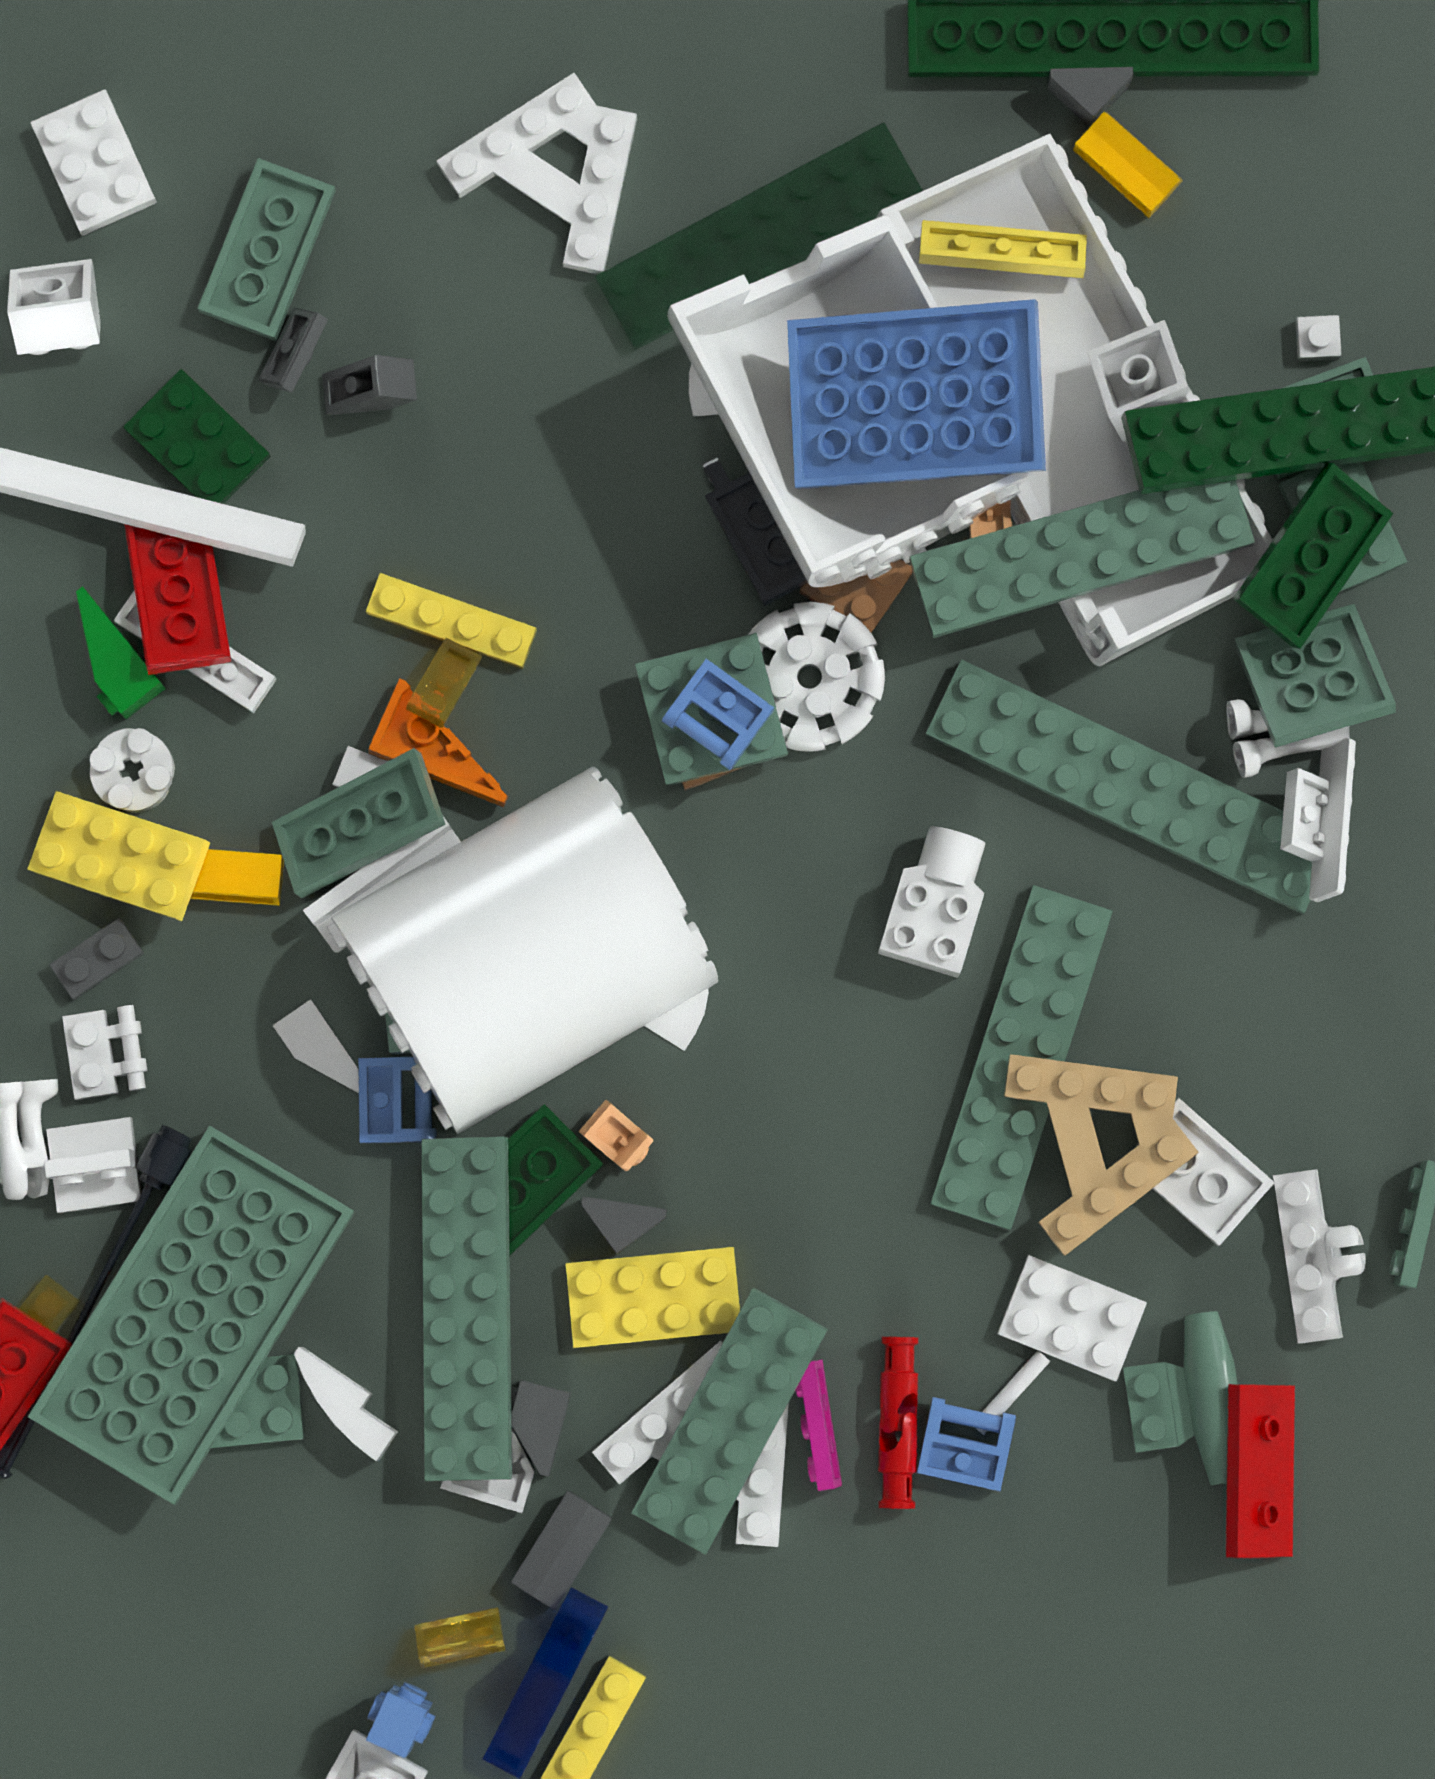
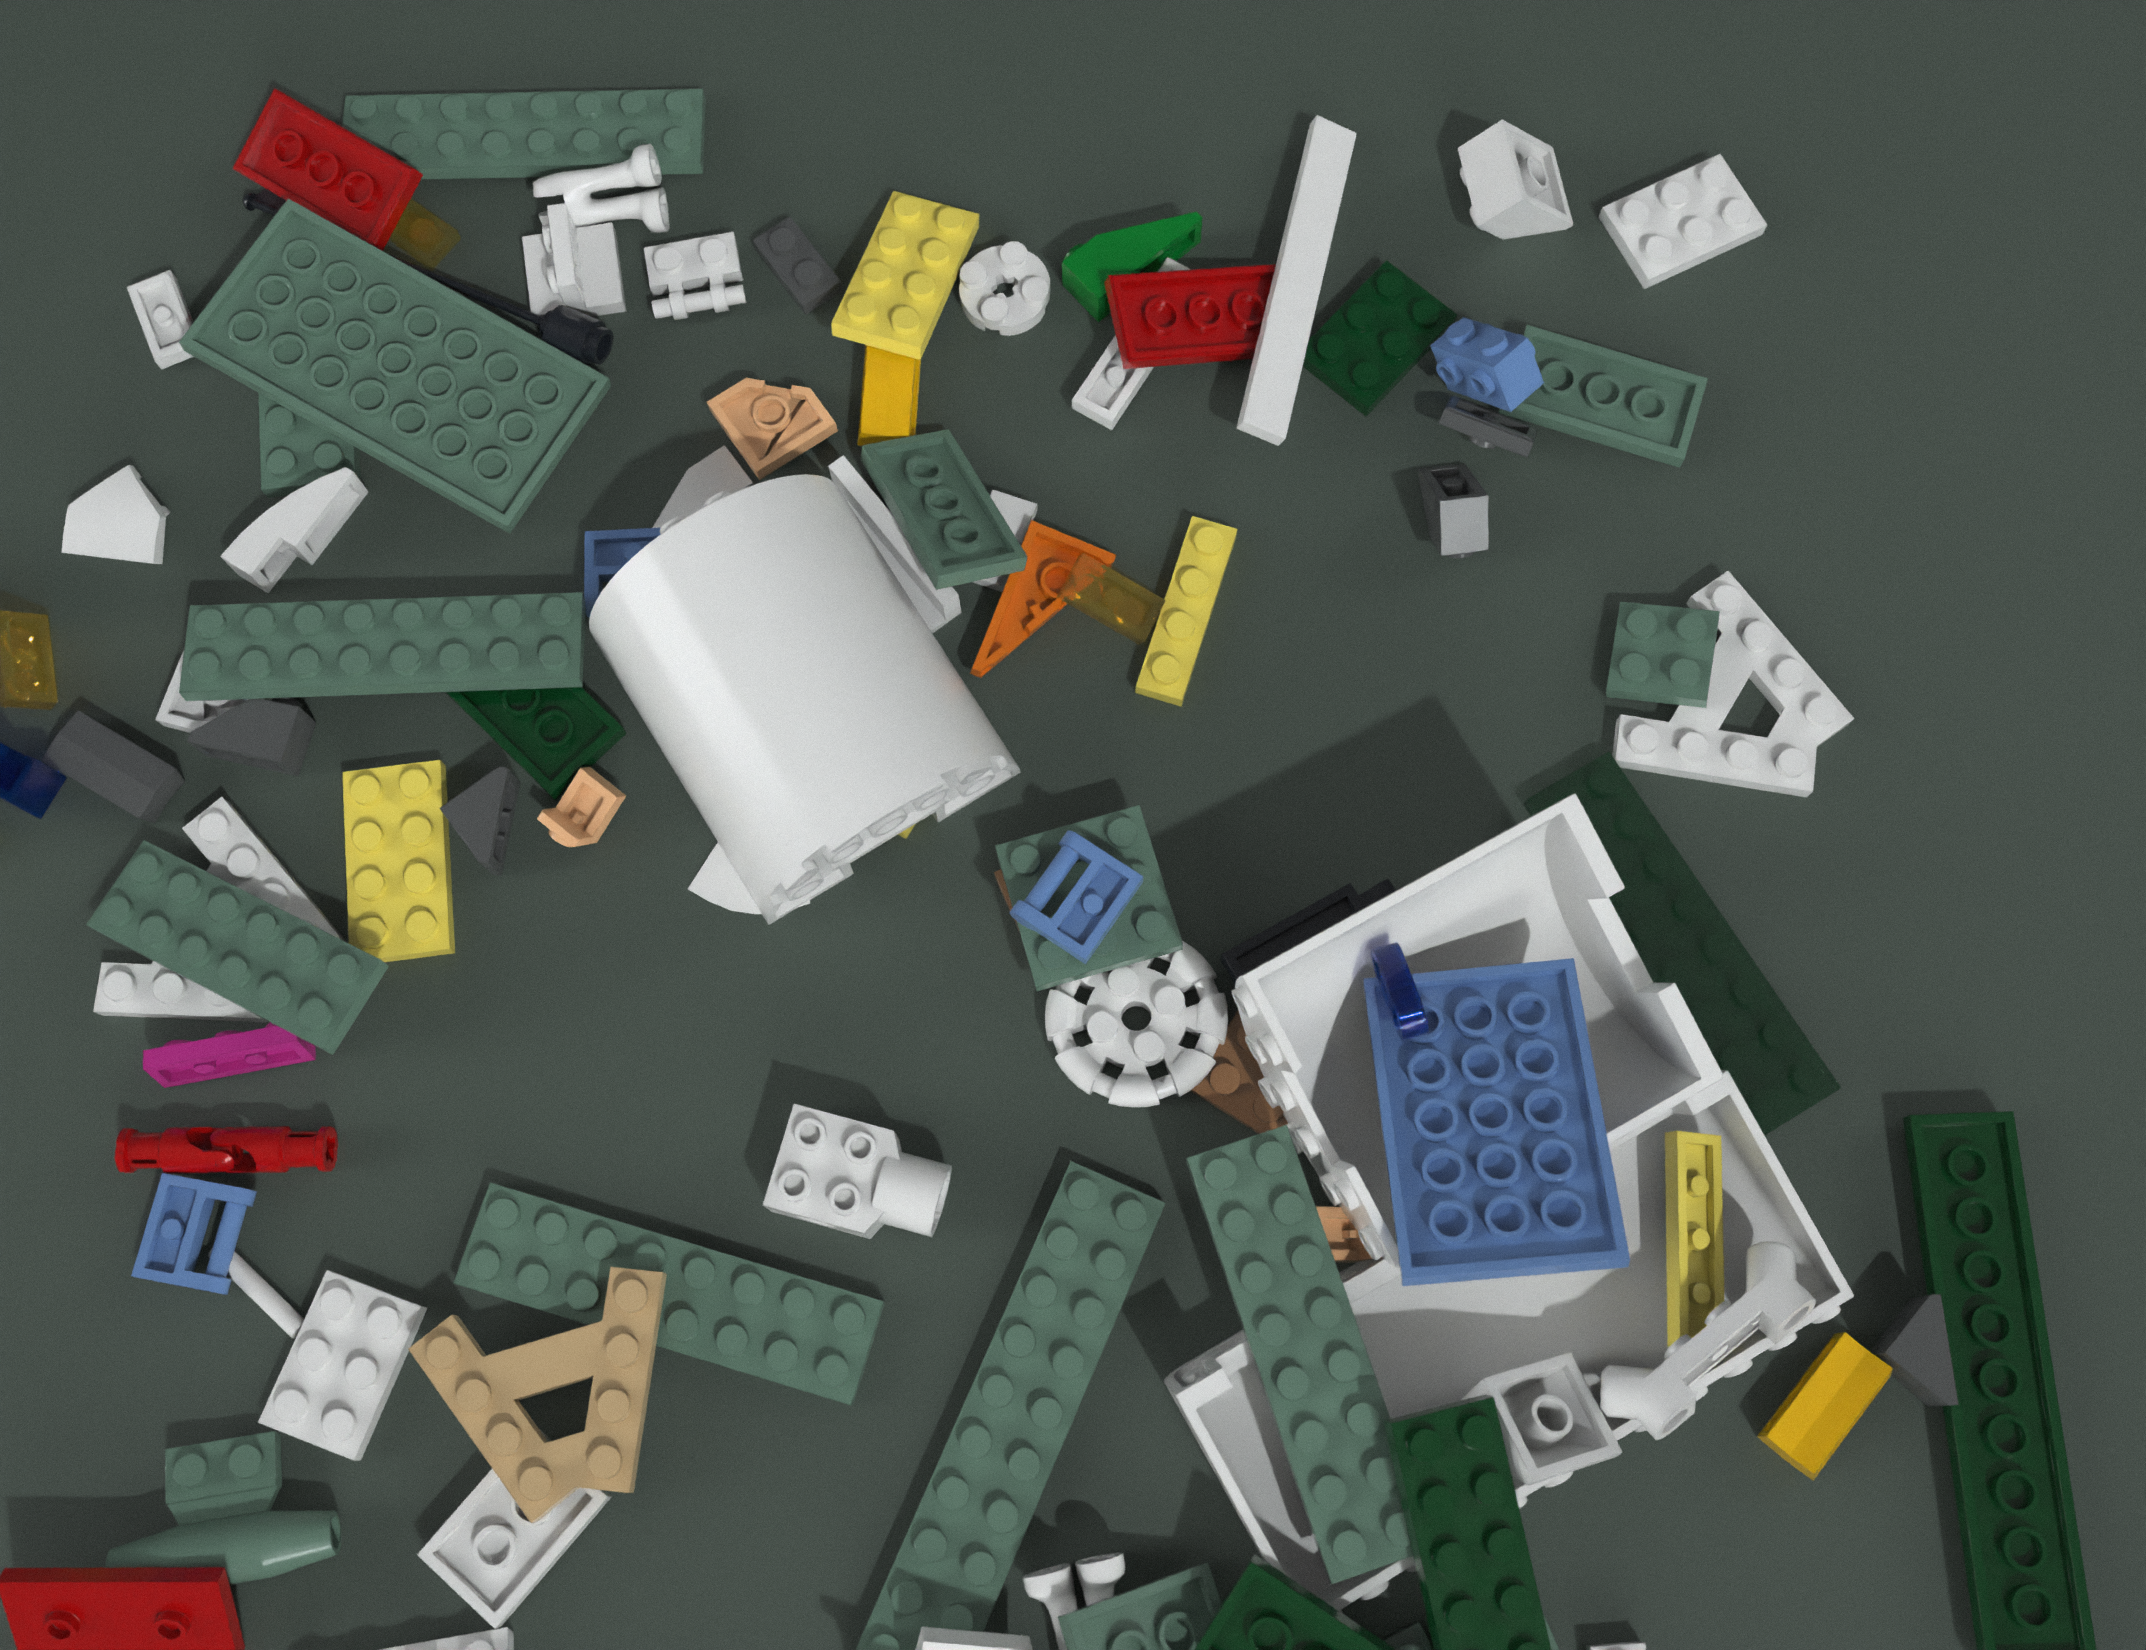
camera: 90 degrees right, 10 degrees down
(125, 1541) = (162, 316): none -> white plate
(242, 345) = (1487, 363): none -> medium blue brick
(257, 980) = (771, 422): none -> light nougat plate
(328, 1568) = (117, 521): none -> white slope
(511, 222) = (1663, 654): none -> sand green plate
(811, 458) = (1399, 991): none -> clear blue beam
(1057, 196) = (1662, 1395): none -> white plate

